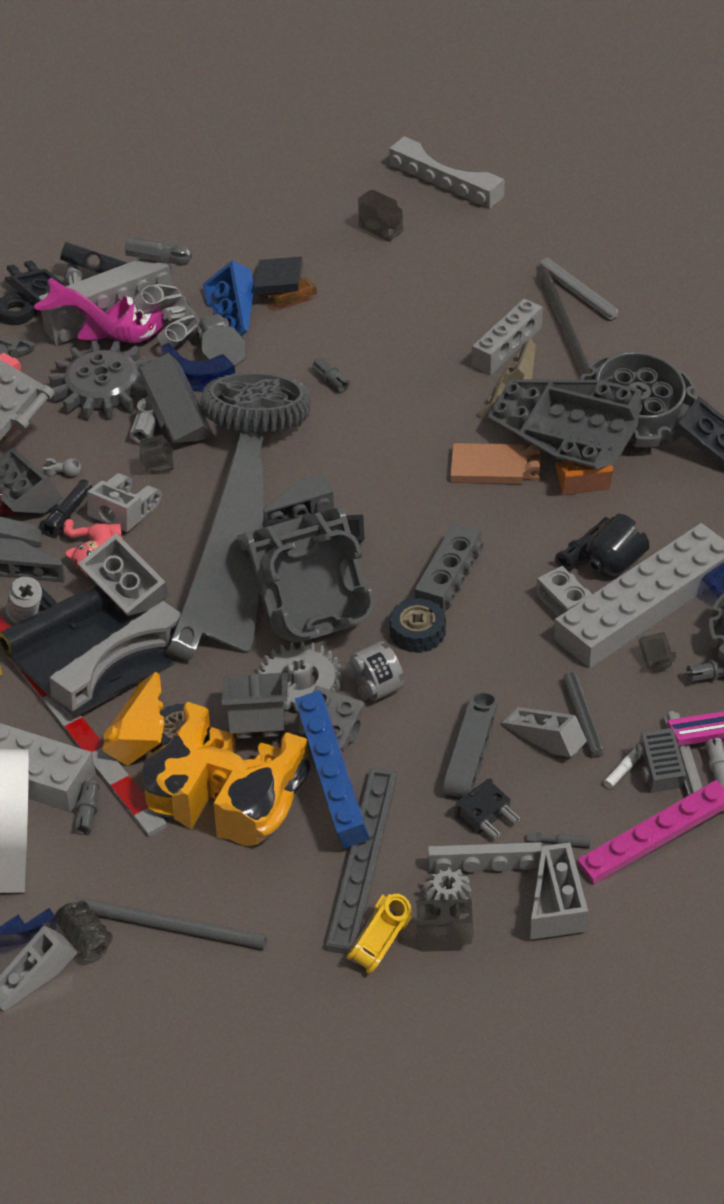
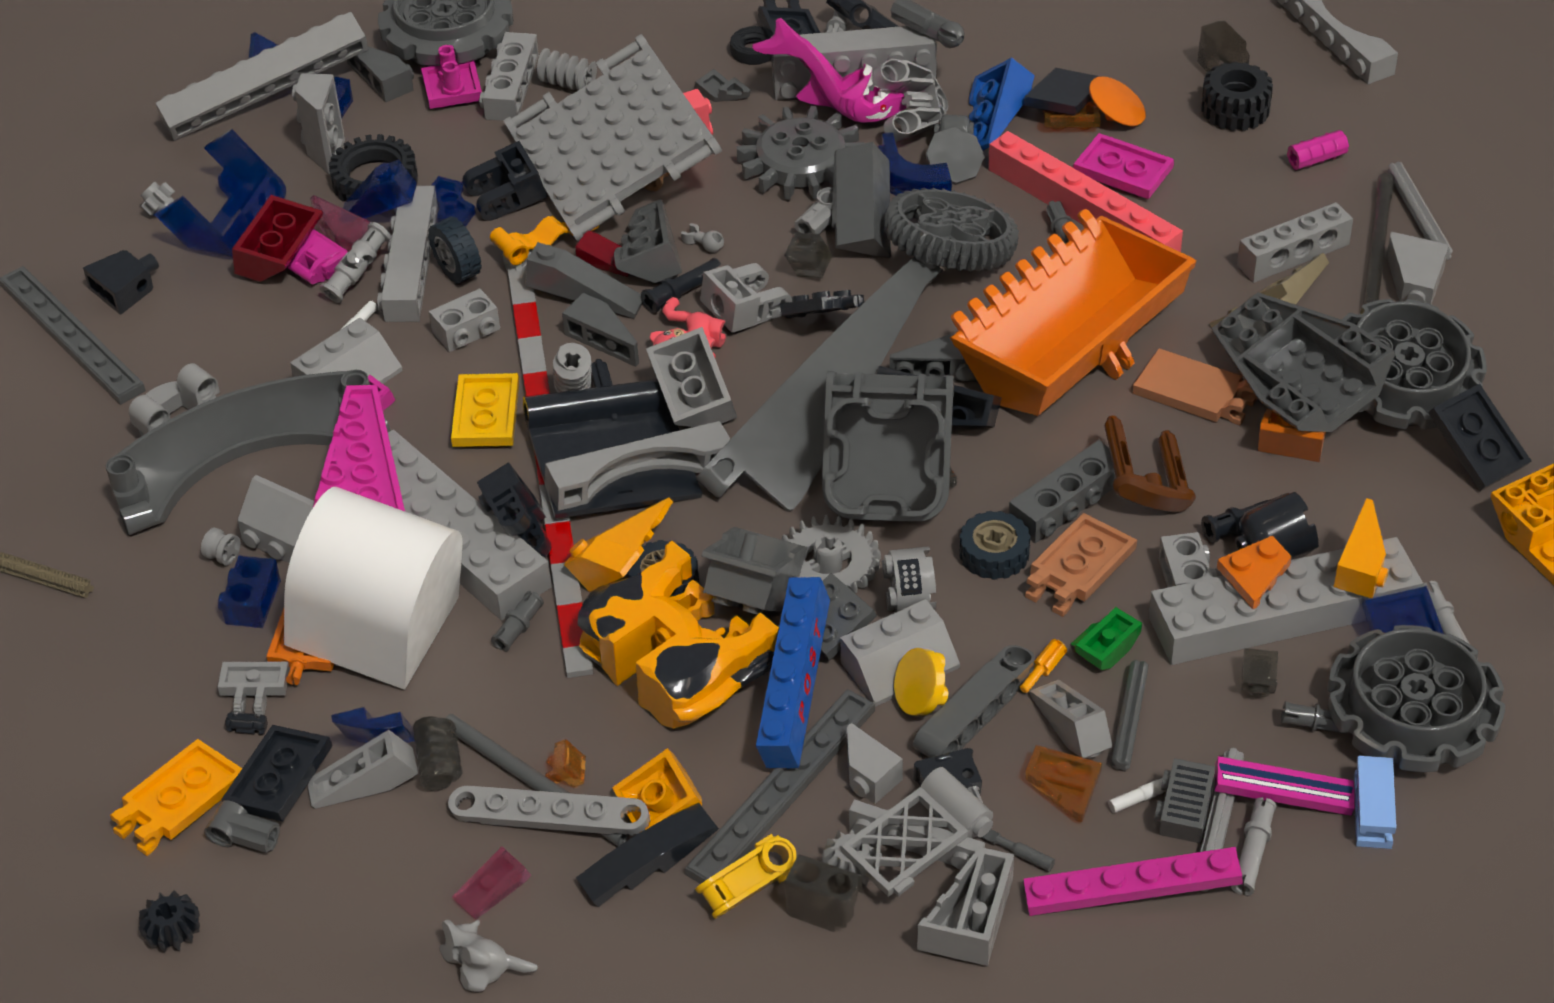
camera: 25 degrees right, 0 degrees up
(34, 715) = (514, 506): none -> black brick
(183, 1014) = (491, 883): none -> clear pink slope
(191, 486) = (821, 303): none -> black plate
(191, 900) = (567, 764): none -> clear orange tile
(197, 941) = (549, 810): none -> light grey plate
(210, 1073) = (480, 957): none -> light grey animal
(276, 898) = (661, 786): none -> light orange slope
(292, 945) = (646, 852): none -> black slope
(321, 272) = (1117, 101): none -> orange shield
(339, 350) = (1056, 181): none -> coral brick
(351, 317) = (1124, 165): none -> dark pink plate
(380, 436) = (1068, 312): none -> orange piece
(394, 728) = (876, 649): none -> light grey slope
(406, 242) = (1236, 96): none -> black tyre
(419, 817) = (871, 765): none -> light grey slope
(426, 743) = (920, 682): none -> yellow tile
(484, 265) = (1317, 149): none -> dark pink axle
(484, 616) = (1078, 562): none -> nougat tile
(503, 696) = (1044, 663): none -> light orange axle
(507, 826) = (945, 799): none -> light grey piece
(512, 546) = (1149, 489): none -> reddish brown piece
(537, 664) = (1109, 639): none -> green slope
(565, 777) = (1064, 779): none -> clear orange wing
(600, 329) = (1416, 266): none -> light grey slope
(621, 578) = (1255, 568): none -> orange wing
(692, 542) = (1364, 556): none -> light orange slope

